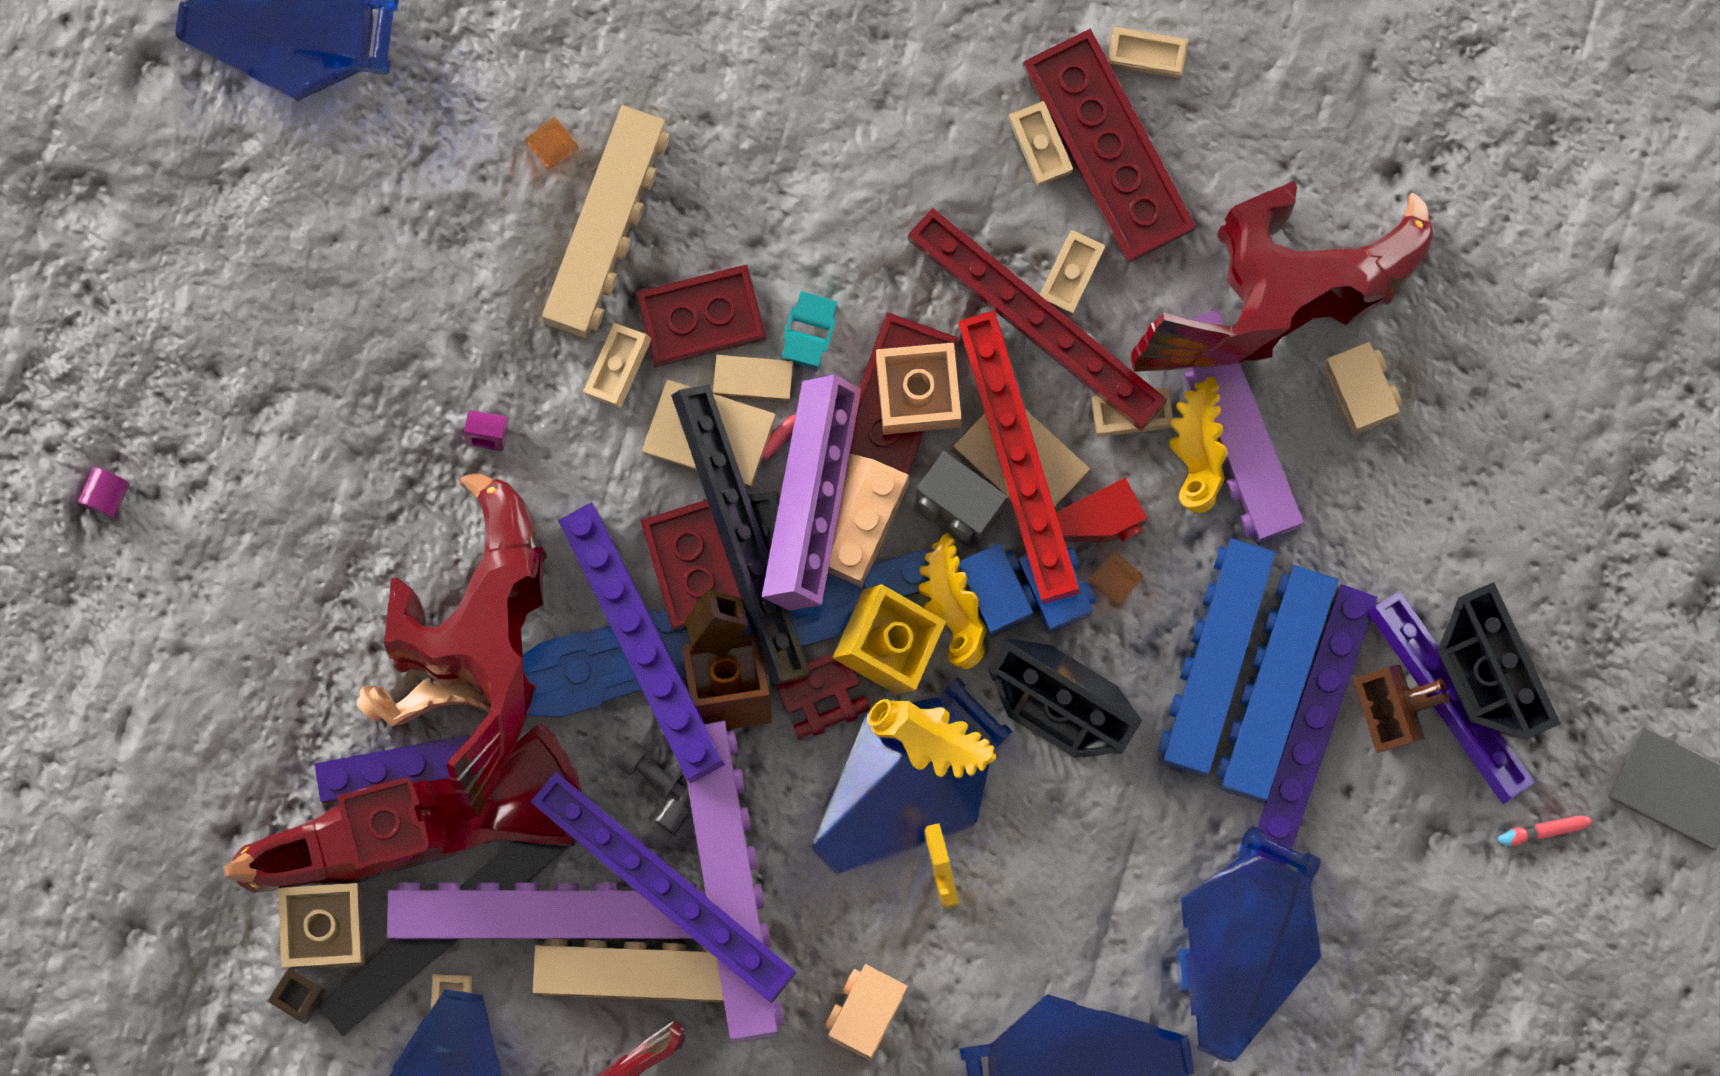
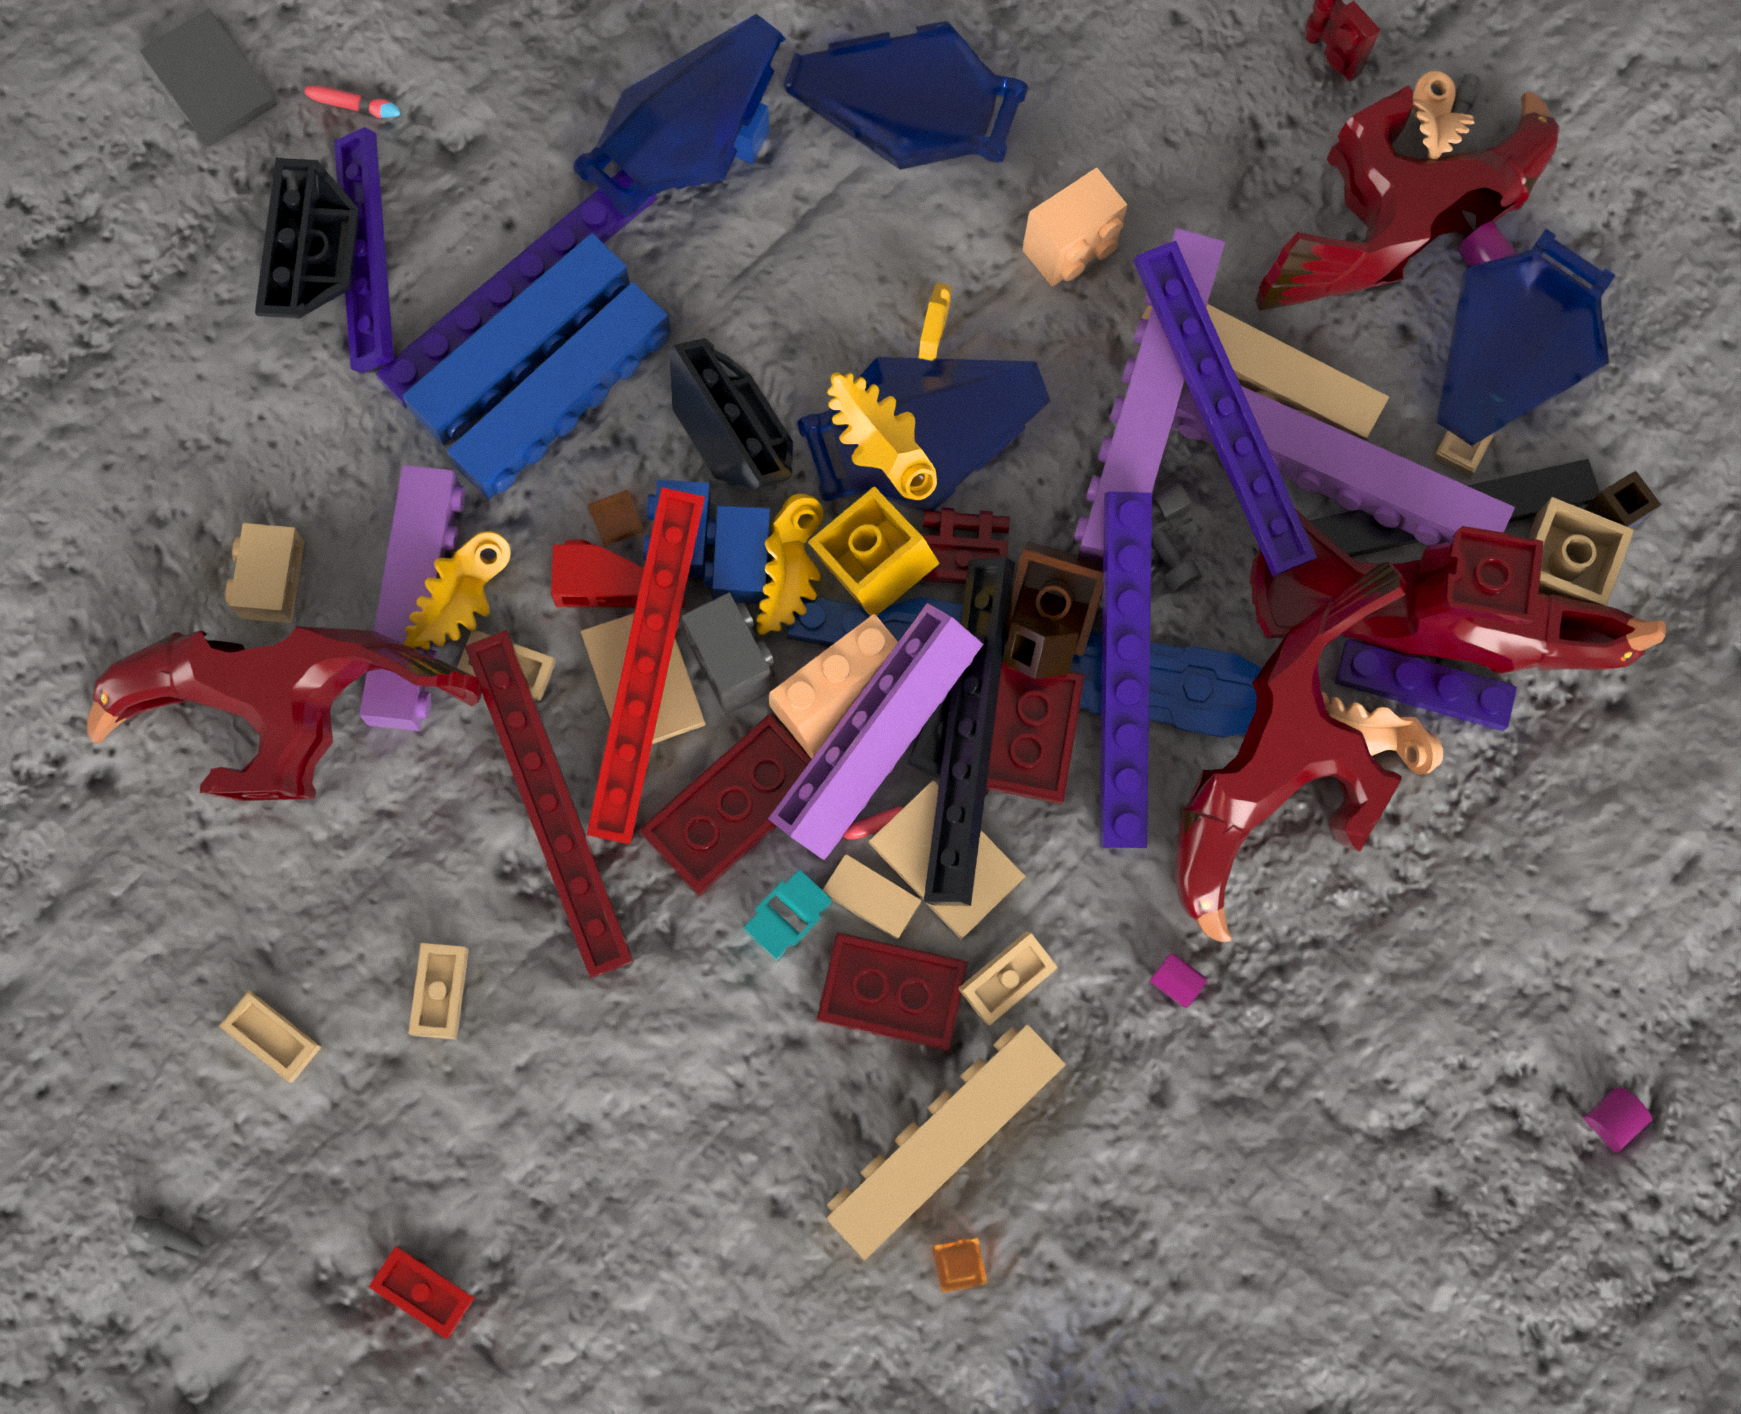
camera: 155 degrees left, 5 degrees down
(918, 388) = (710, 783): light nougat brick -> none
(1072, 272) = (485, 837): tan plate -> none
(1109, 146) = (369, 954): dark red plate -> none
(1393, 707) = (422, 259): reddish brown brick -> none

